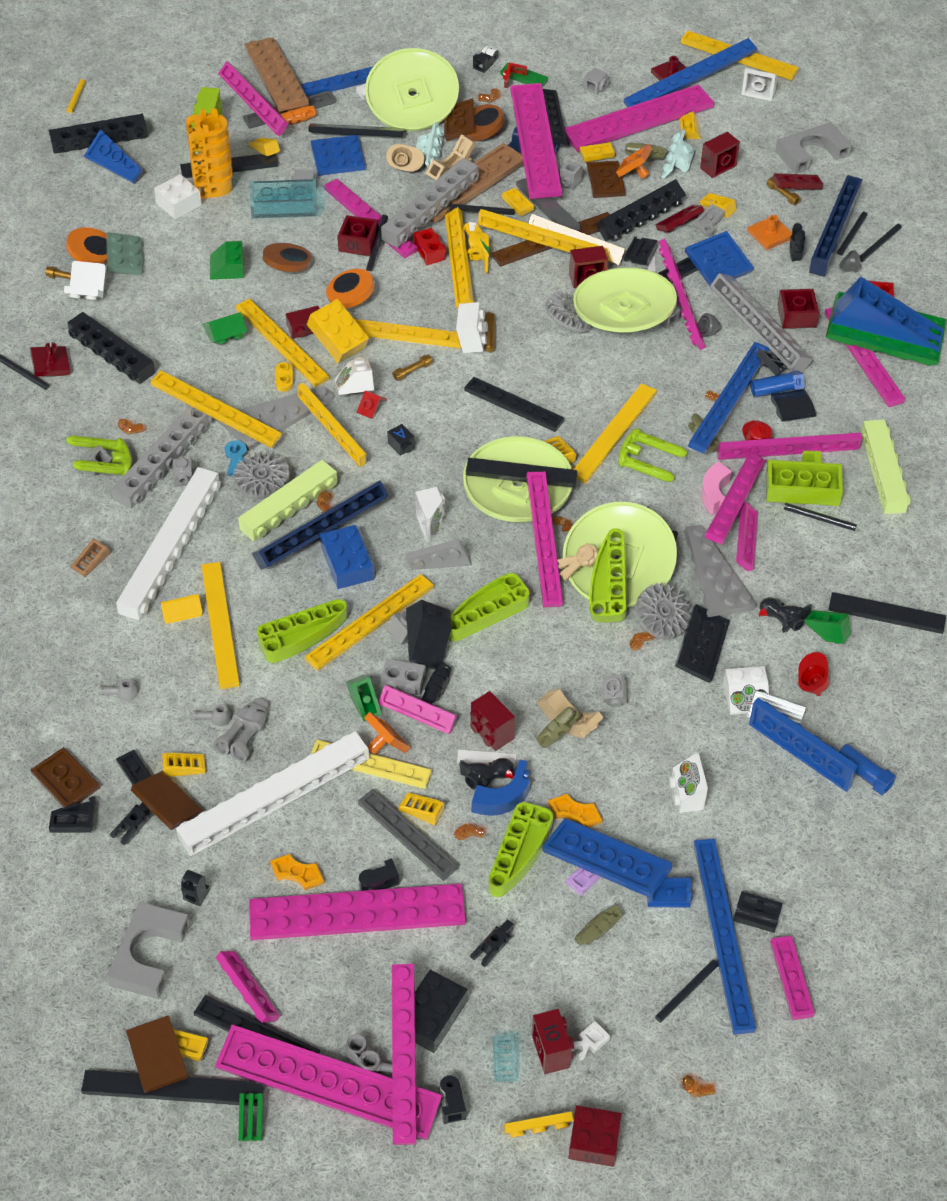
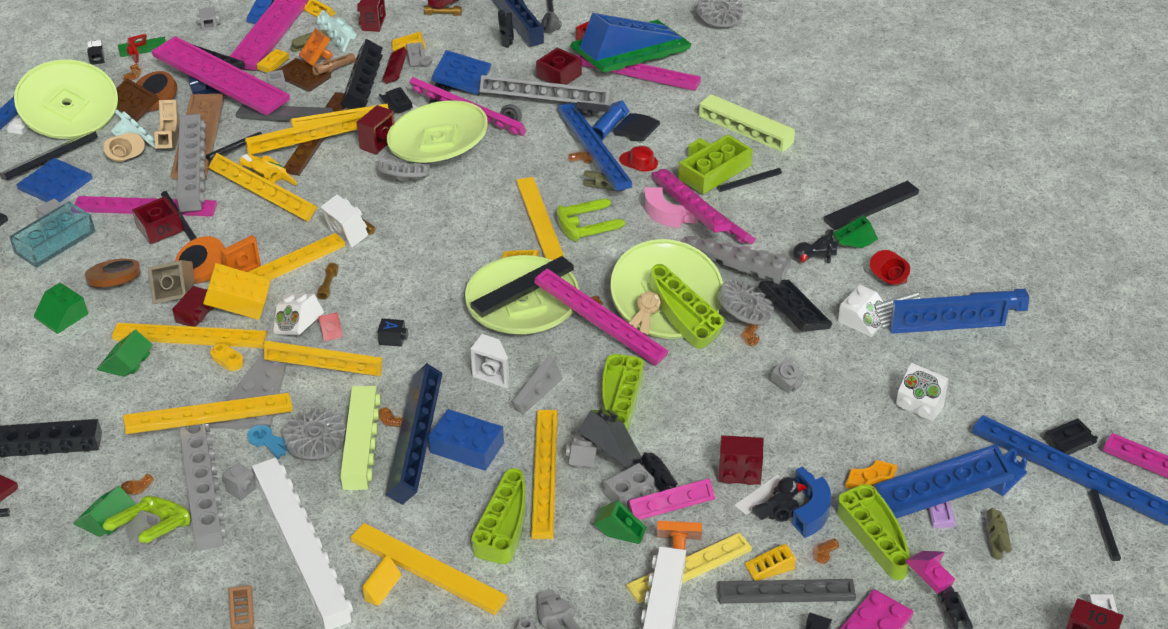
camera: 45 degrees left, 10 degrees down
(91, 428) = (104, 507): none -> green slope
(311, 291) = (170, 280): none -> dark tan slope
(371, 306) = (242, 255): none -> orange tile
(429, 246) = (227, 193): red brick -> none
(505, 905) = (928, 567): none -> dark pink slope
(514, 404) = (441, 253): black tile -> none
(517, 201) = (255, 125): yellow plate -> none
(554, 702) = (782, 419): tan arch -> none
(558, 727) = (789, 428): olive hinge -> none
(629, 184) = (330, 65): none -> medium nougat pin
(770, 232) = (469, 38): orange tile -> none
(789, 446) = (671, 151): dark pink plate -> none

